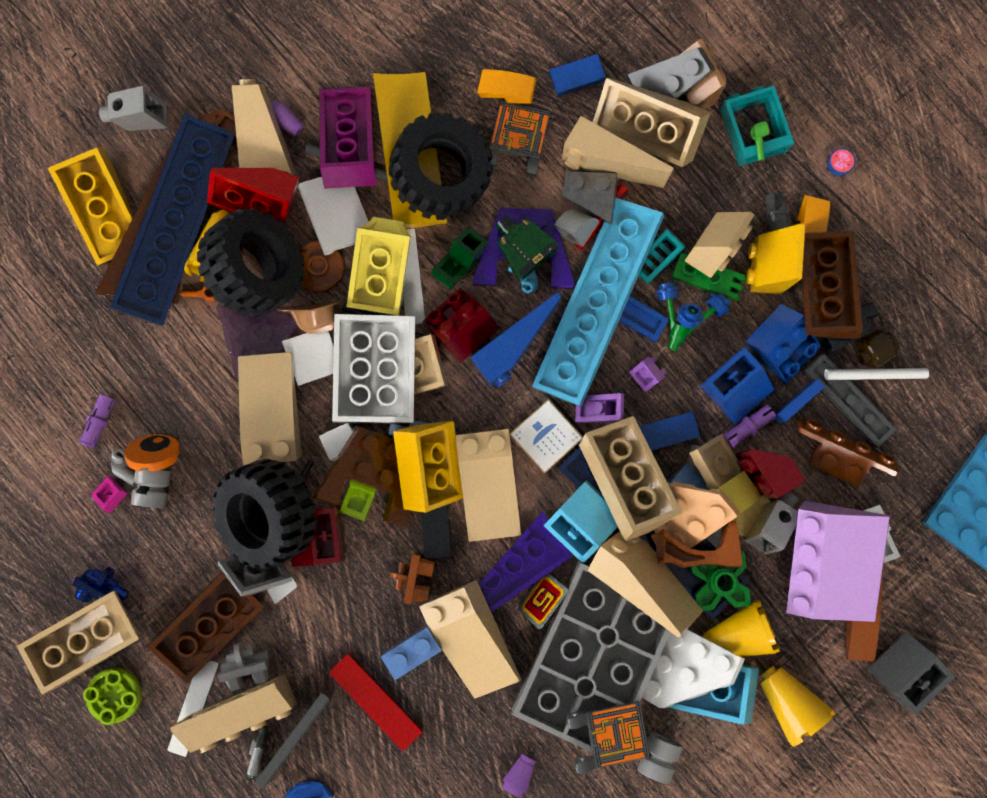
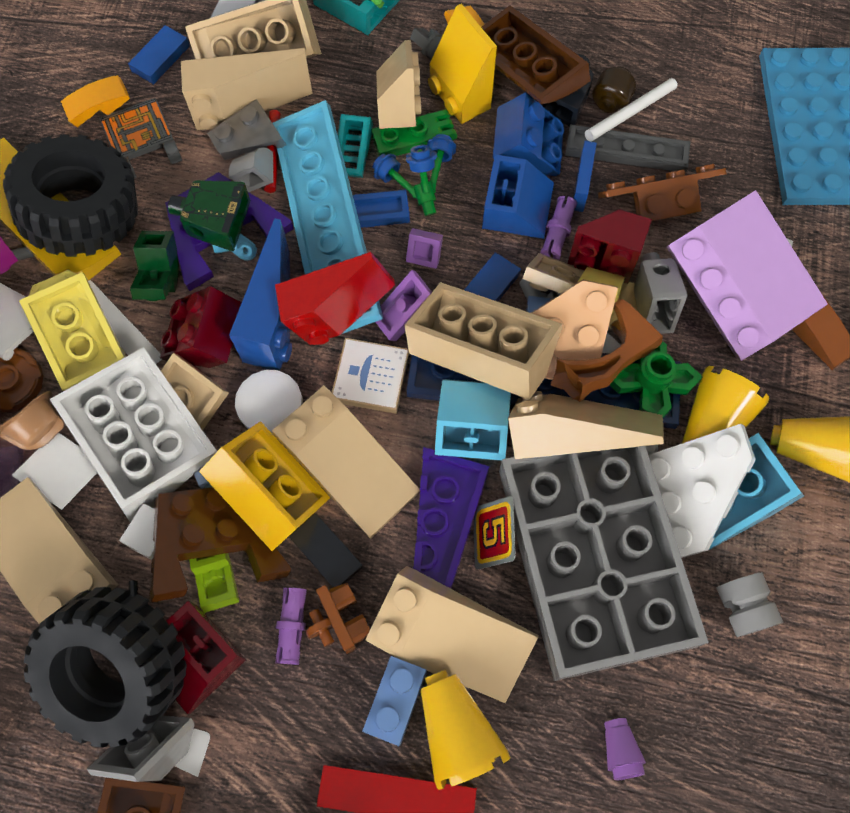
camera: 40 degrees left, 15 degrees down
(384, 561) = (291, 626): none -> medium lavender pin
(433, 698) = (457, 732): none -> yellow cone
(469, 406) = (267, 398): none -> white tile
(550, 378) = (332, 298): none -> red slope
(614, 734) = (685, 610): flag -> none

